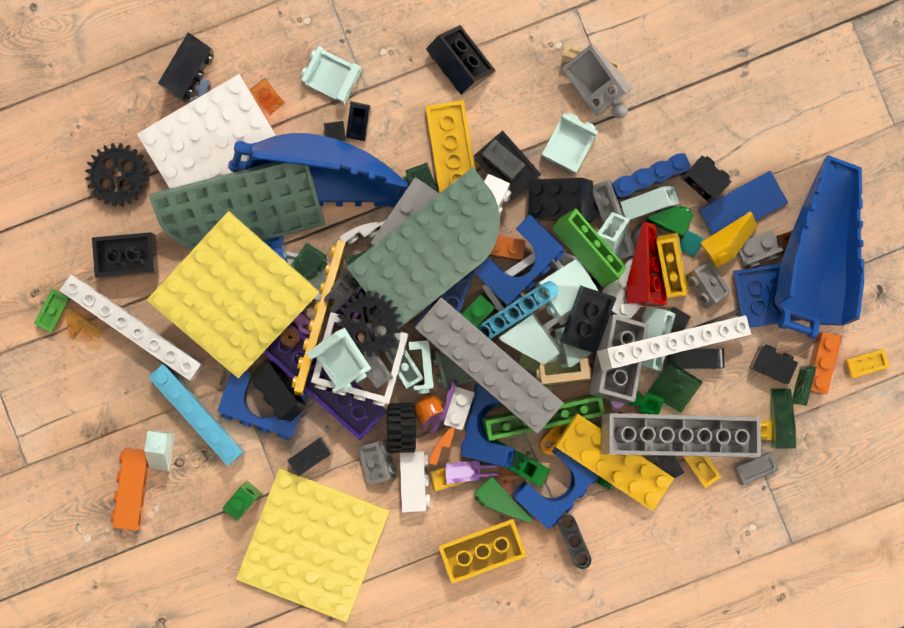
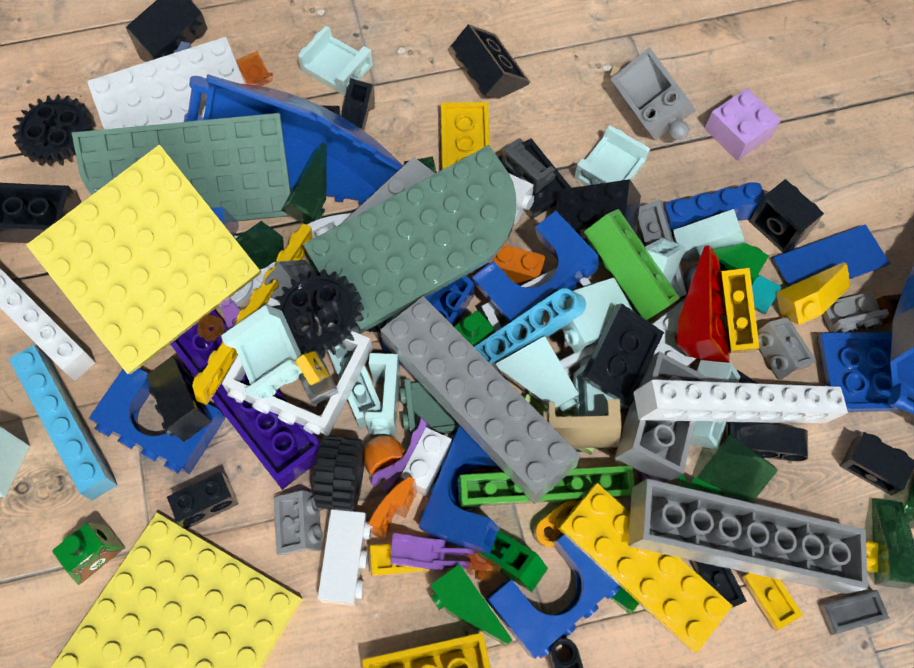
camera: 10 degrees right, 20 degrees down
(336, 208) = (309, 191): none -> clear green slope
(375, 368) = (312, 368): none -> yellow tile
(671, 93) = (742, 124): none -> lavender brick

